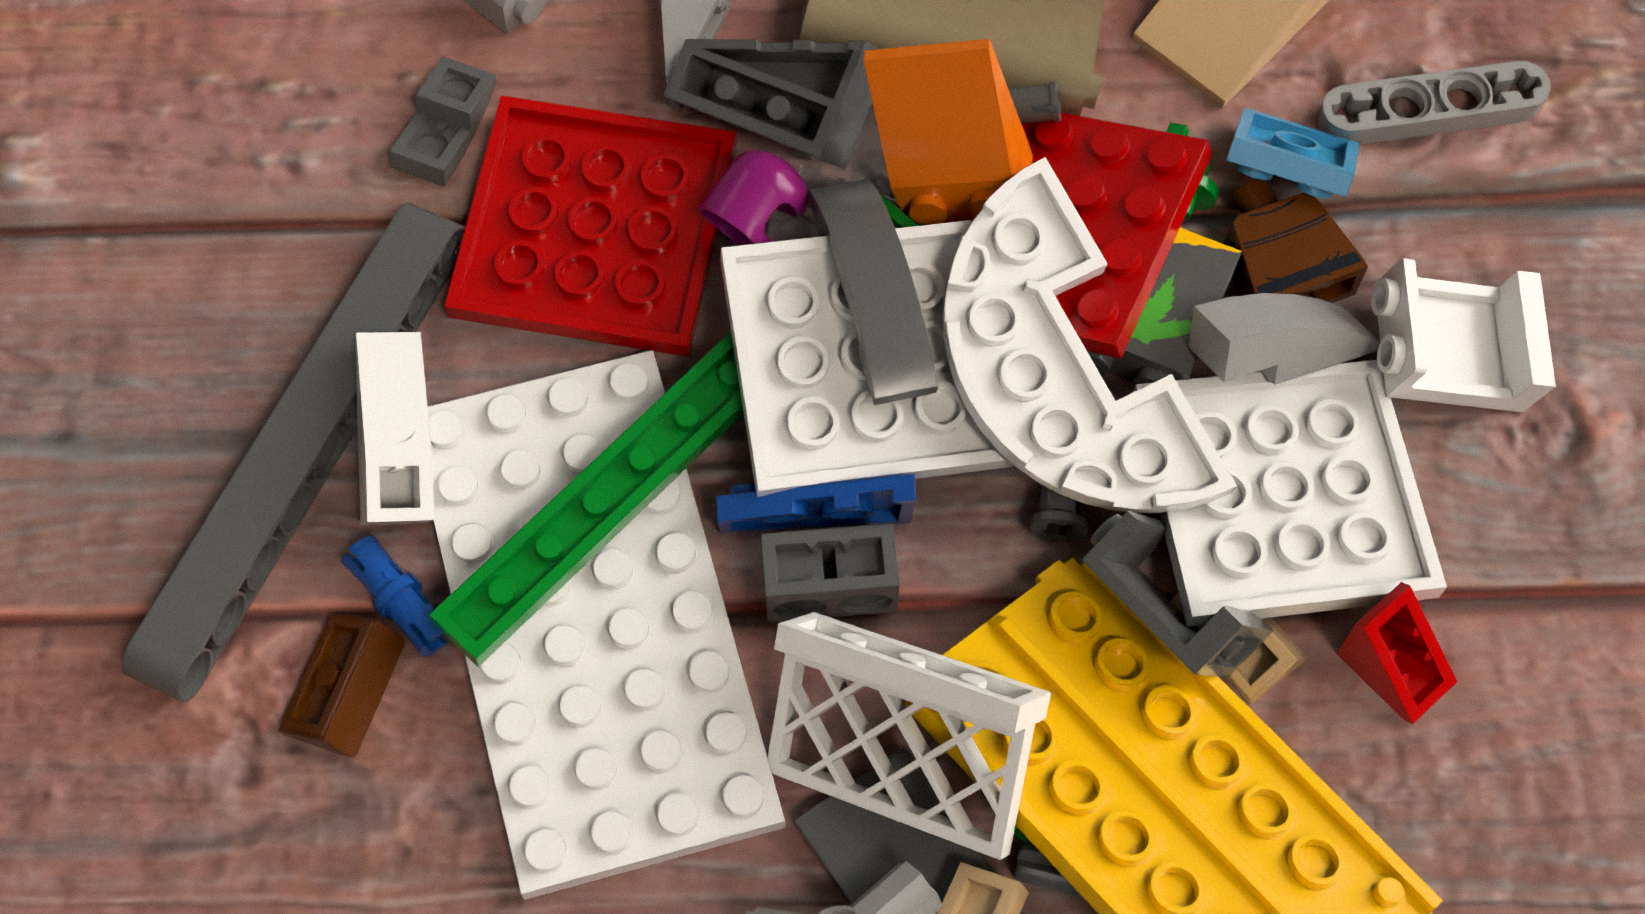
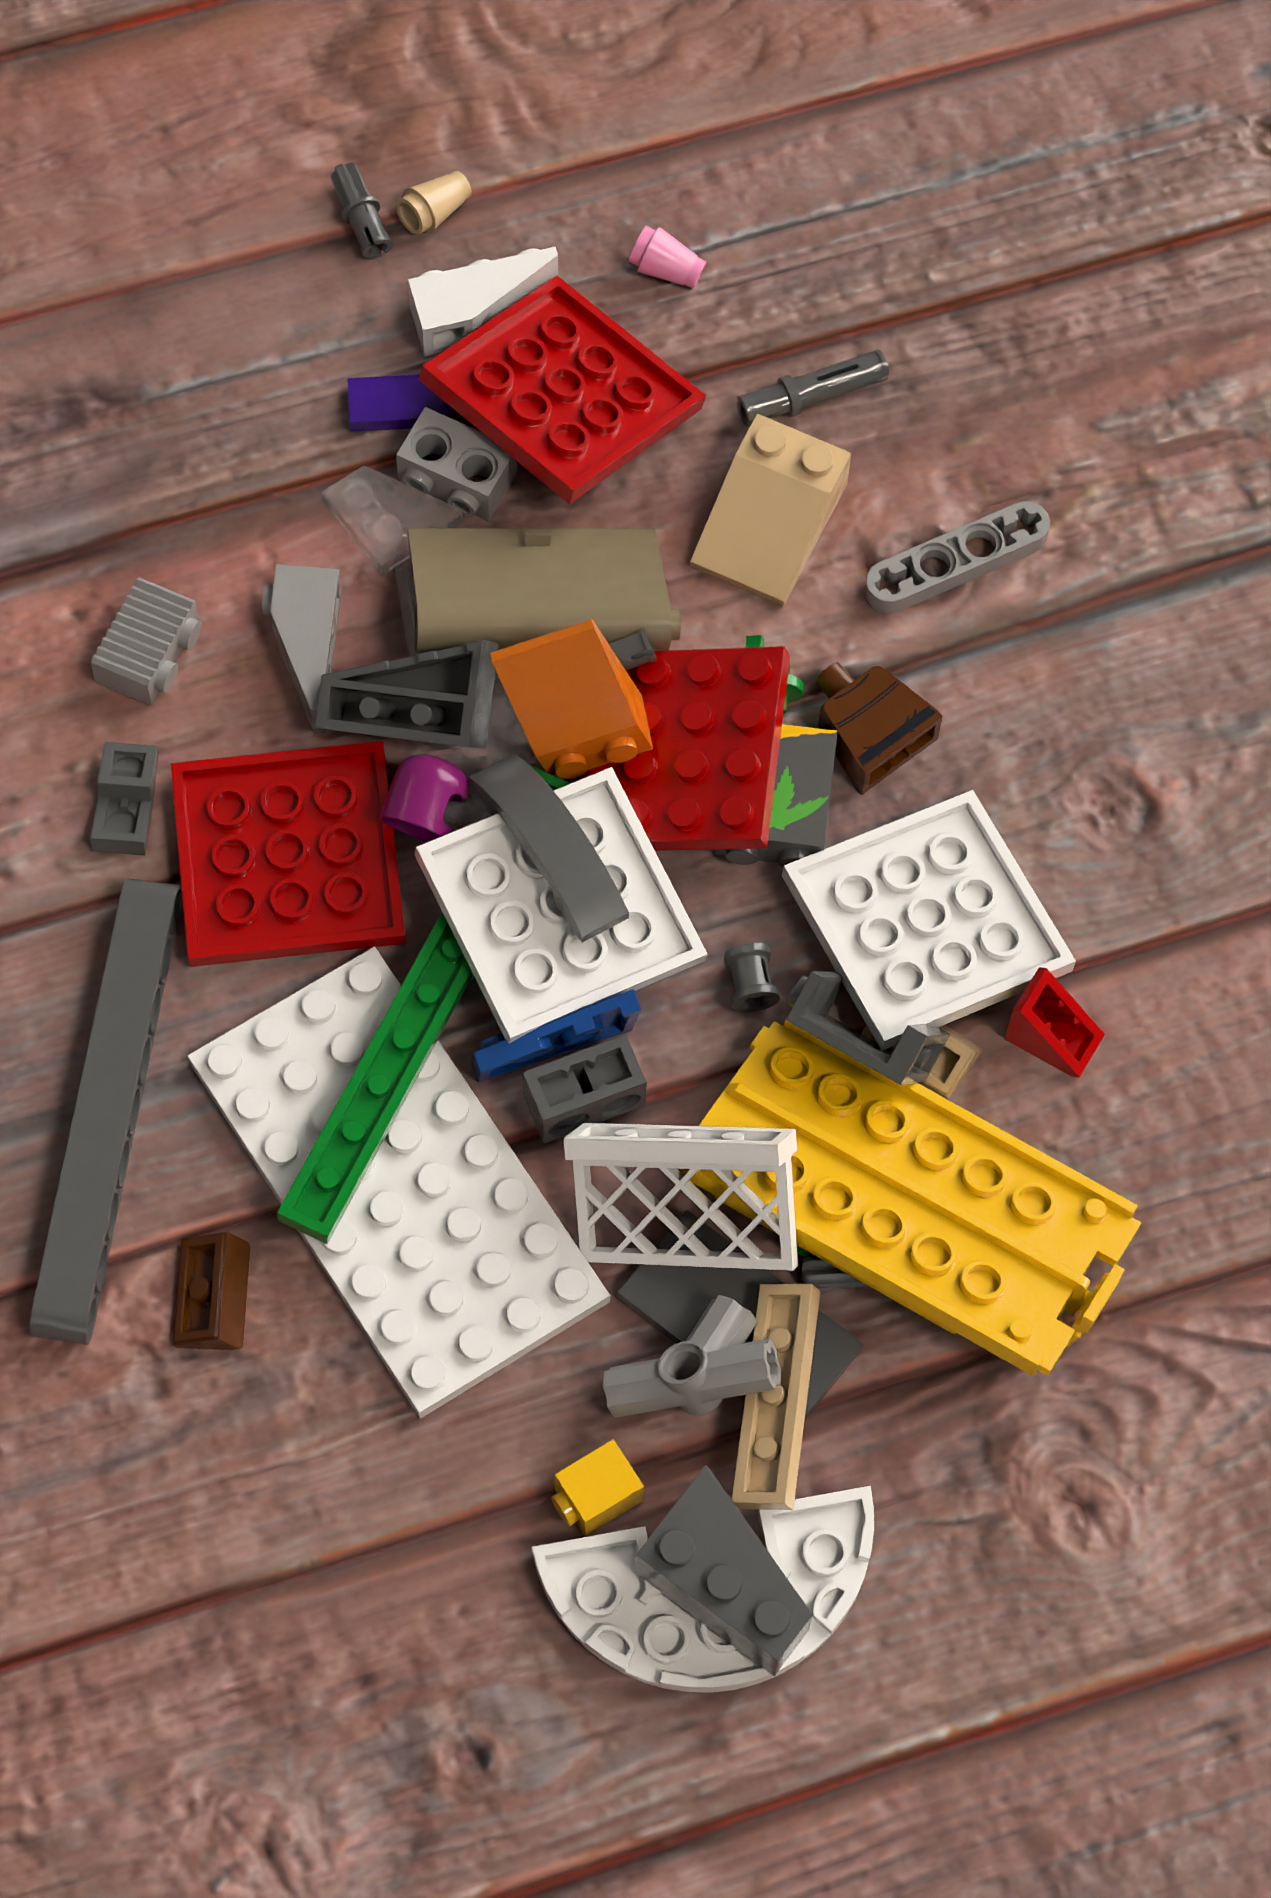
camera: 20 degrees left, 0 degrees up
(393, 430) = (188, 1074): white slope -> none
(395, 594) = (232, 1208): blue pin -> none
(1034, 380) = (702, 884): white plate -> none
(1276, 336) = (885, 794): light grey slope -> none
(1296, 152) = (855, 634): dark azure plate -> none
(1463, 340) = (1034, 755): white panel -> none

